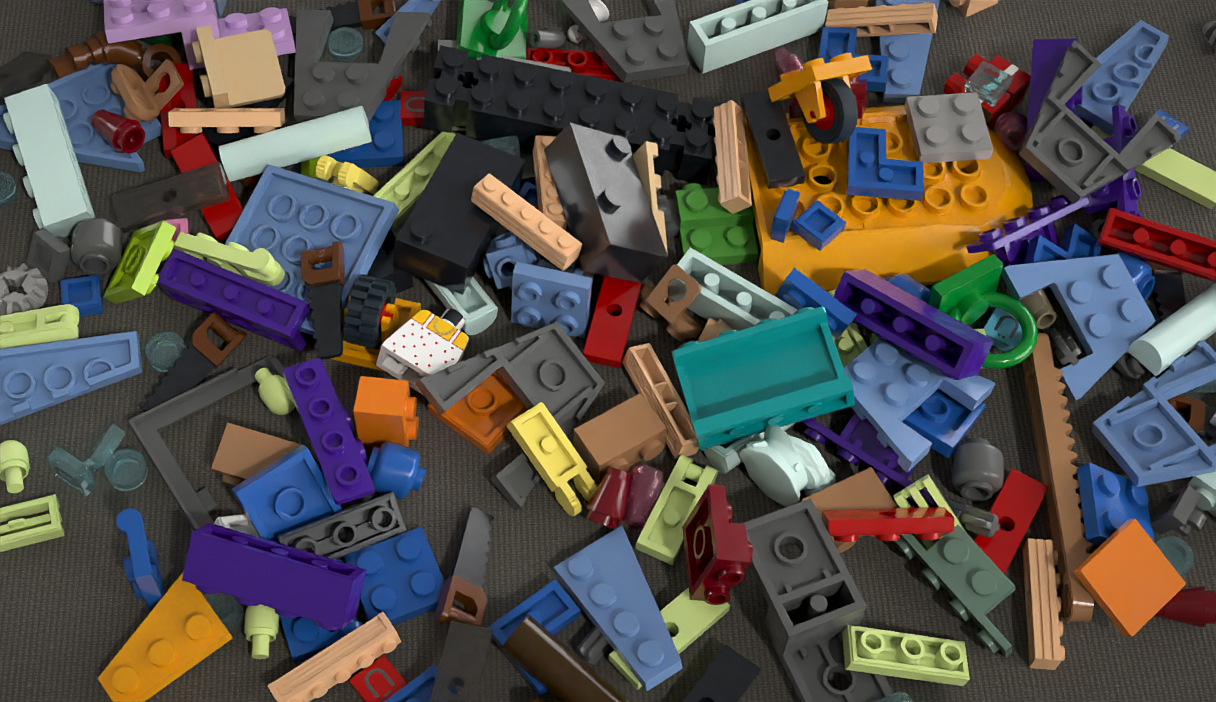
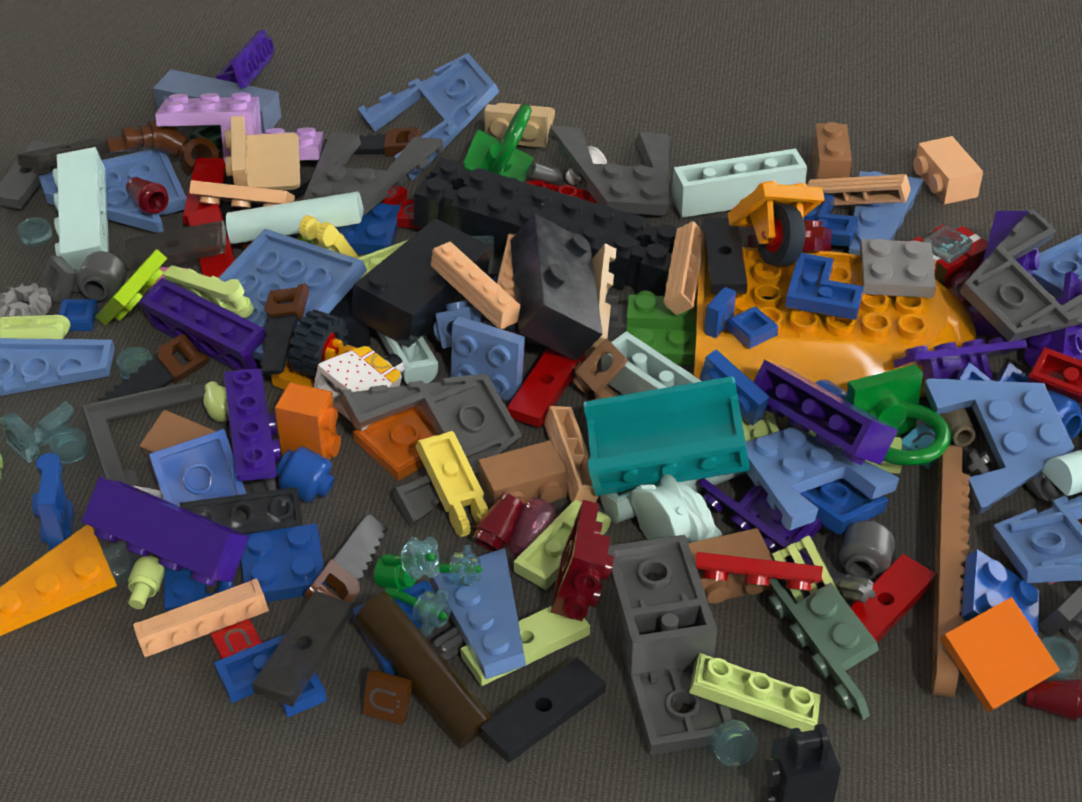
camera: 15 degrees right, 15 degrees down
(140, 96) = (174, 175): medium nougat bracket -> none
(345, 44) = (366, 159): clear light blue tile -> none
(556, 577) = (420, 559): none -> clear light blue plant
(1042, 604) = (909, 676): light nougat piece -> none

